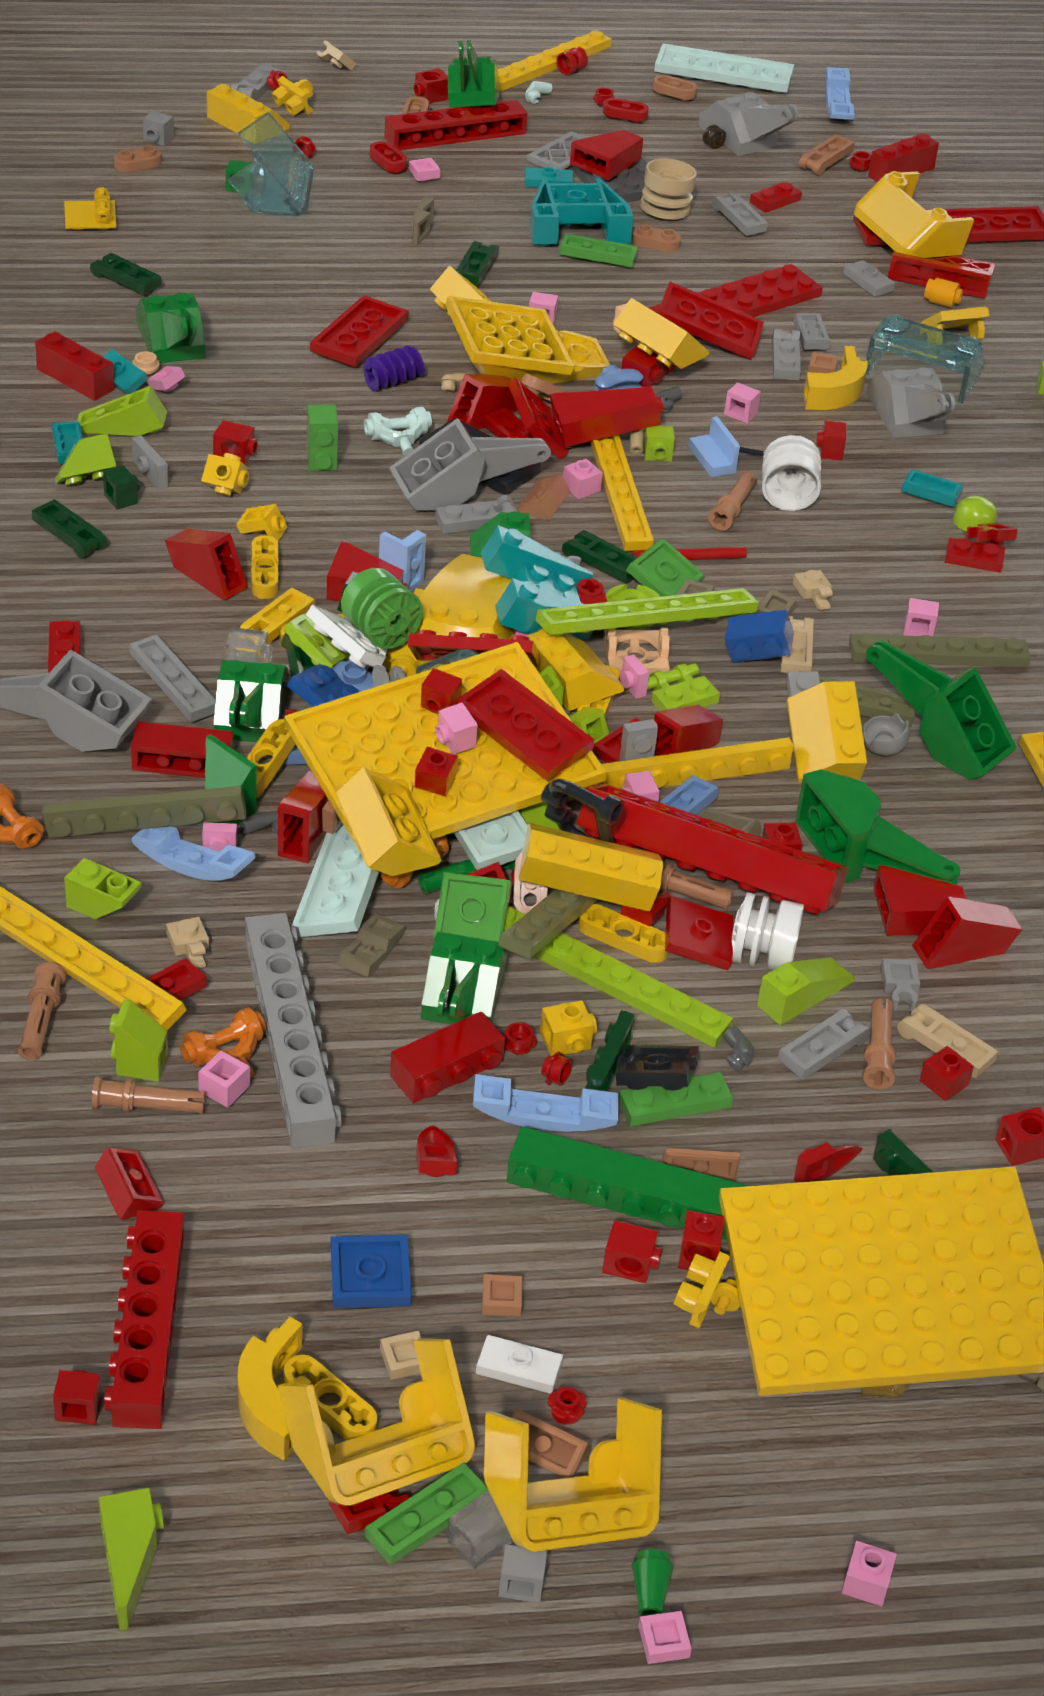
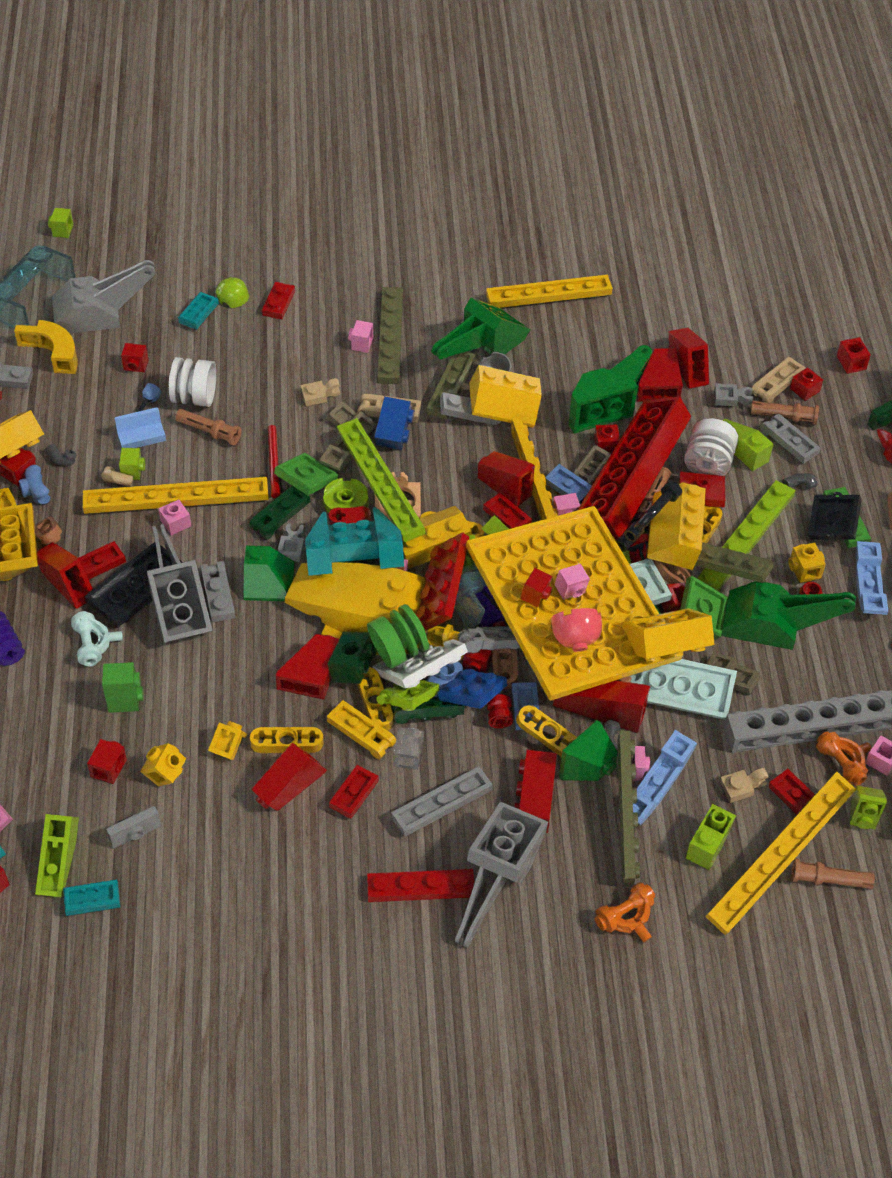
camera: 85 degrees left, 10 degrees up
(69, 528) = (229, 890): dark green plate -> none
(86, 459) = (134, 876): lime slope -> none
(120, 487) = (172, 849): dark green plate -> none
(189, 612) = (353, 791): none -> red plate
(249, 698) = (479, 738): green slope -> none
(373, 723) = (577, 629): none -> coral cylinder
(406, 555) = (304, 627): light blue panel -> none
(436, 771) = (612, 599): red plate -> none
(447, 1057) = (845, 639): red brick -> none
(450, 381) = (15, 596): tan arm -> none
(525, 724) = (562, 541): red plate -> none
(537, 417) = (97, 536): red tile -> none
(545, 497) = (193, 547): nougat slope -> none
(556, 1069) = (835, 573): red plate -> none
(604, 413) = (105, 493): red slope -> none
(617, 1038) = (827, 543): dark green plate -> none
(634, 676) = (433, 501): bright pink plate -> none
(638, 740) = (531, 499): light grey plate -> none
(686, 693) = (446, 476): lime plate -> none
(742, 402) = (76, 406): bright pink plate -> none
(822, 363) = (24, 352): nougat plate -> none
(992, 533) = (260, 284): red plate -> none

